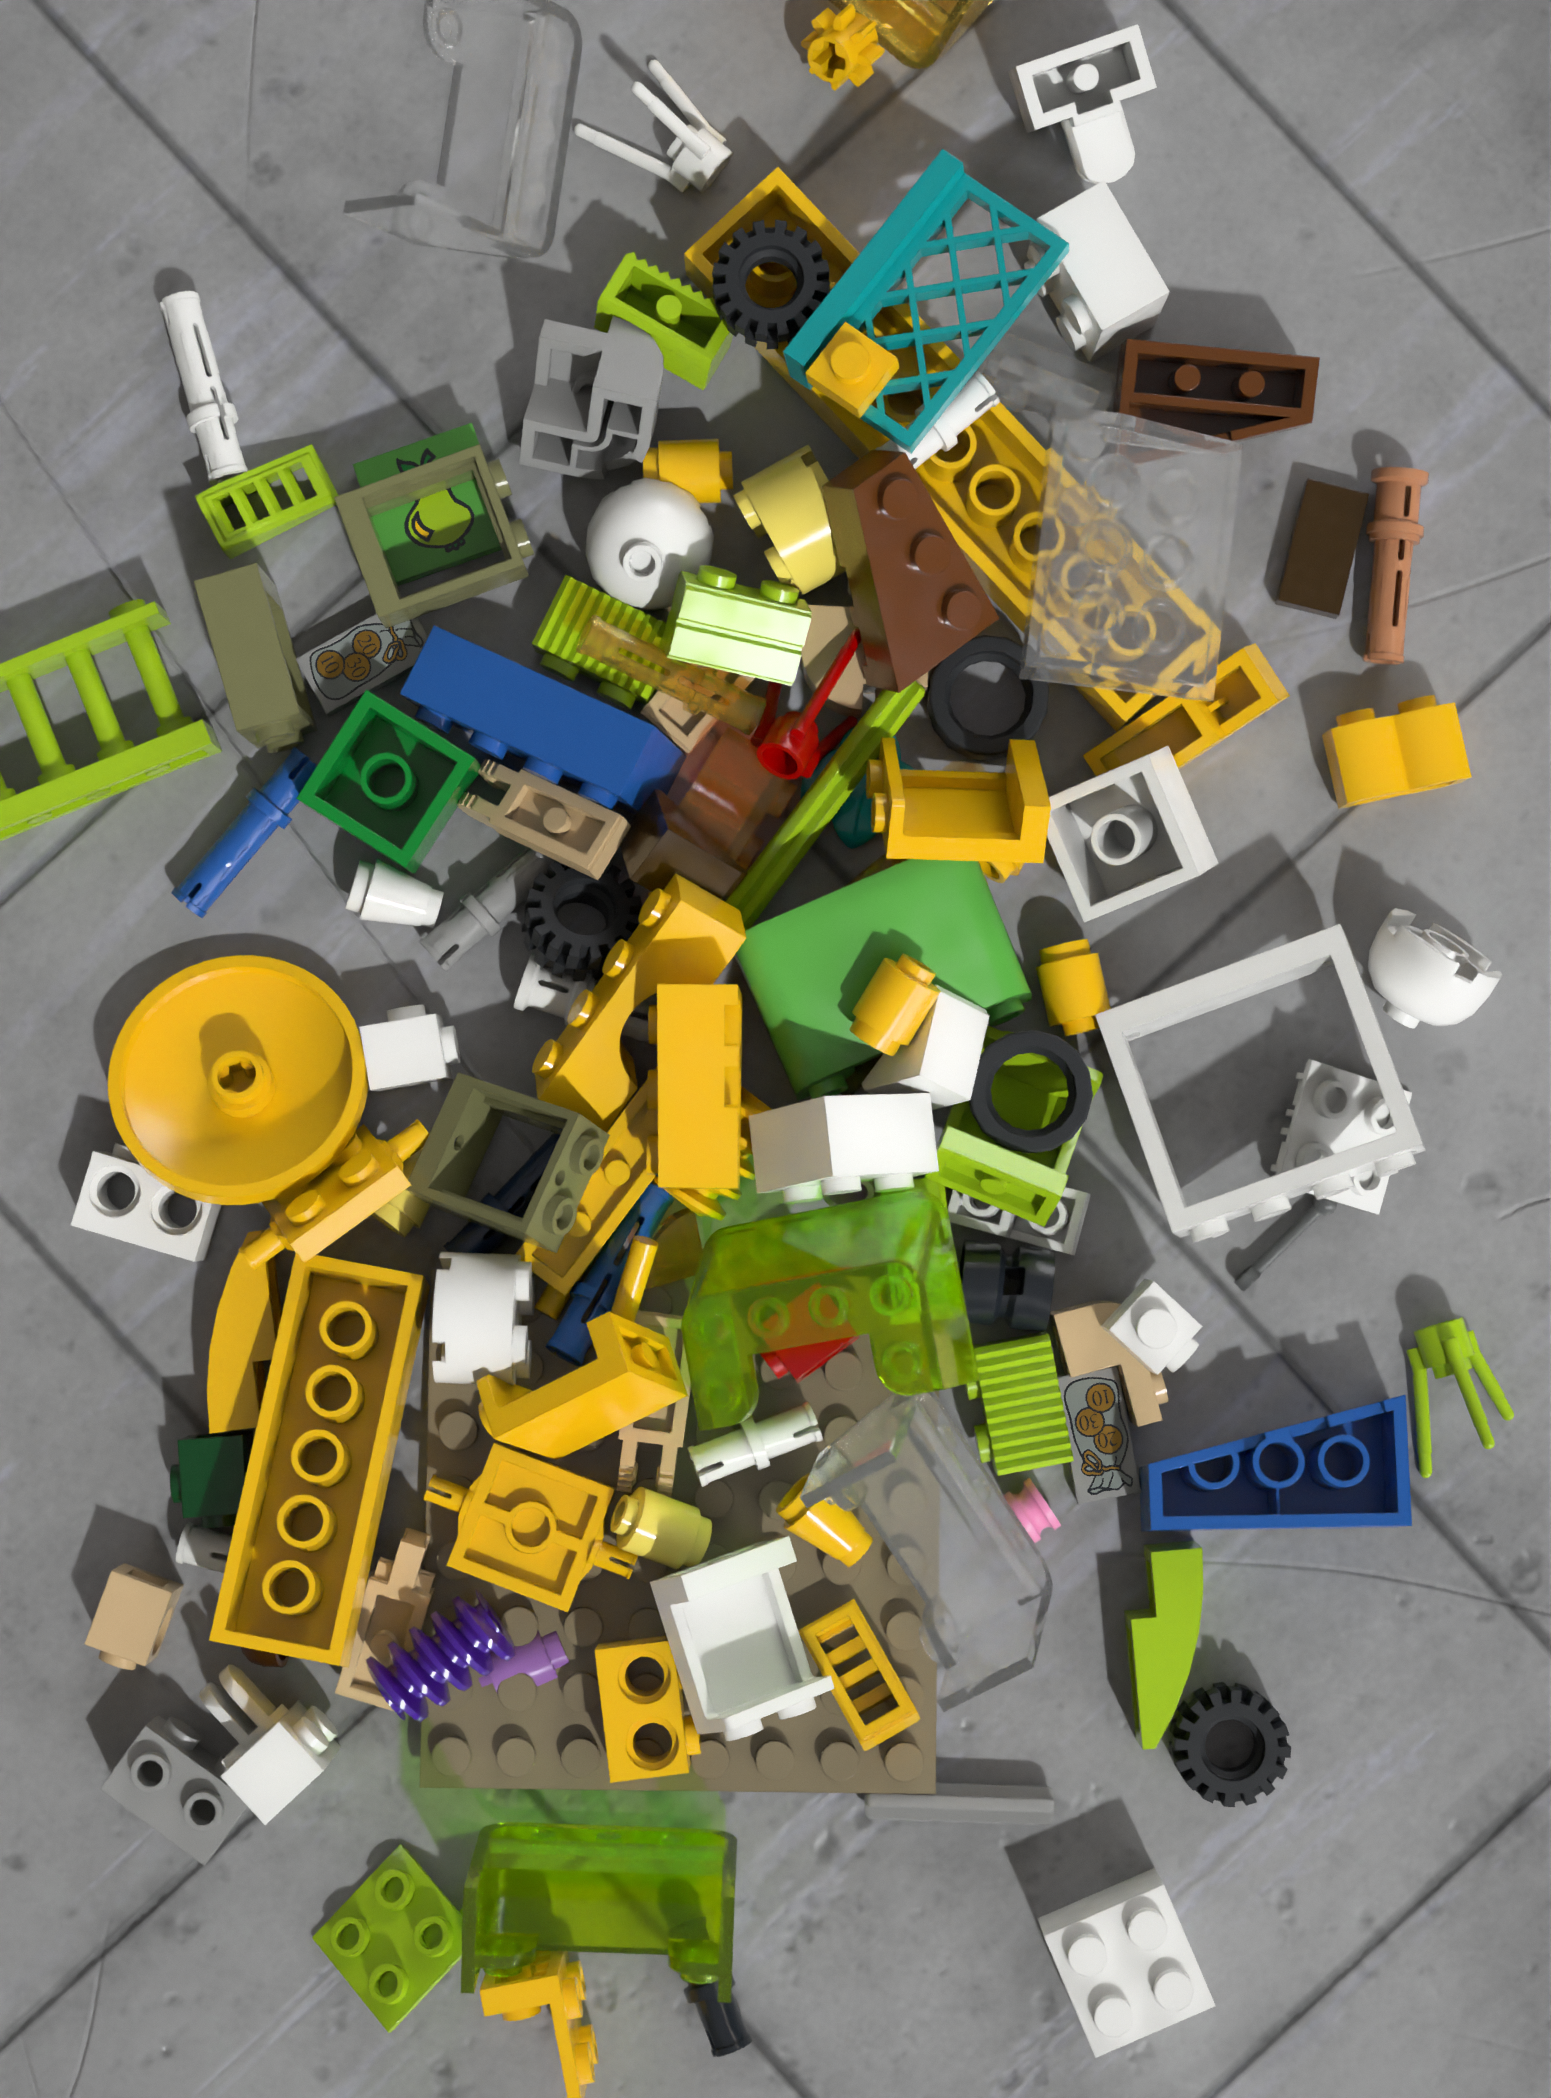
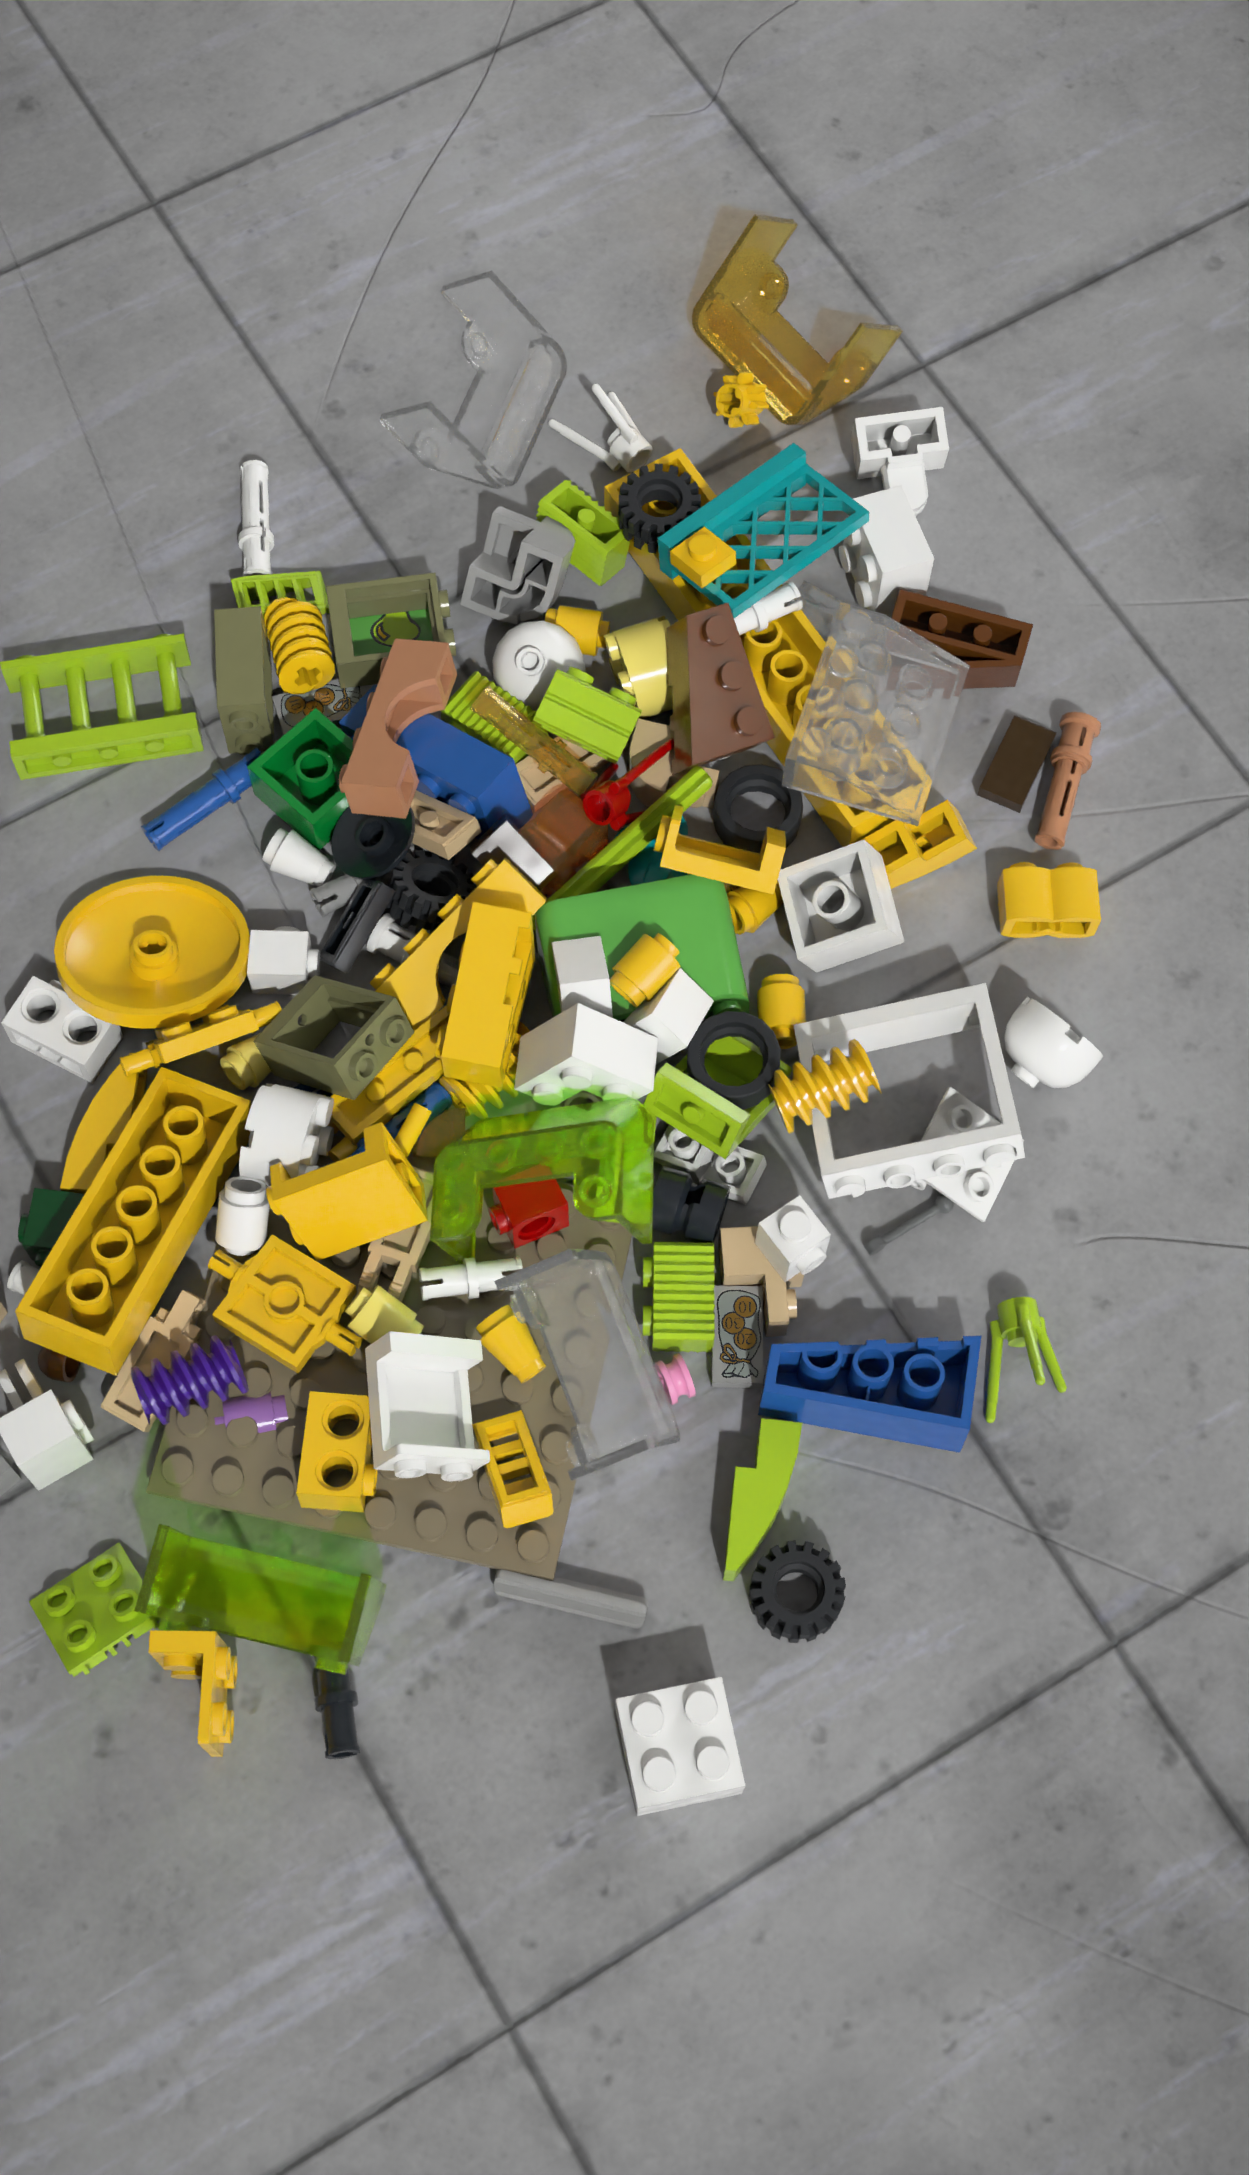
camera: 10 degrees right, 20 degrees down
(315, 584) = (298, 645): none -> yellow piece
(451, 1431) = (242, 1216): none -> white brick
(466, 862) = (370, 843): none -> black dish
(491, 631) = (411, 684): none -> nougat arch
(494, 985) = (356, 924): none -> black tile
(816, 1035) = (582, 974): none -> white slope
(1155, 1120) = (823, 1085): none -> yellow piece

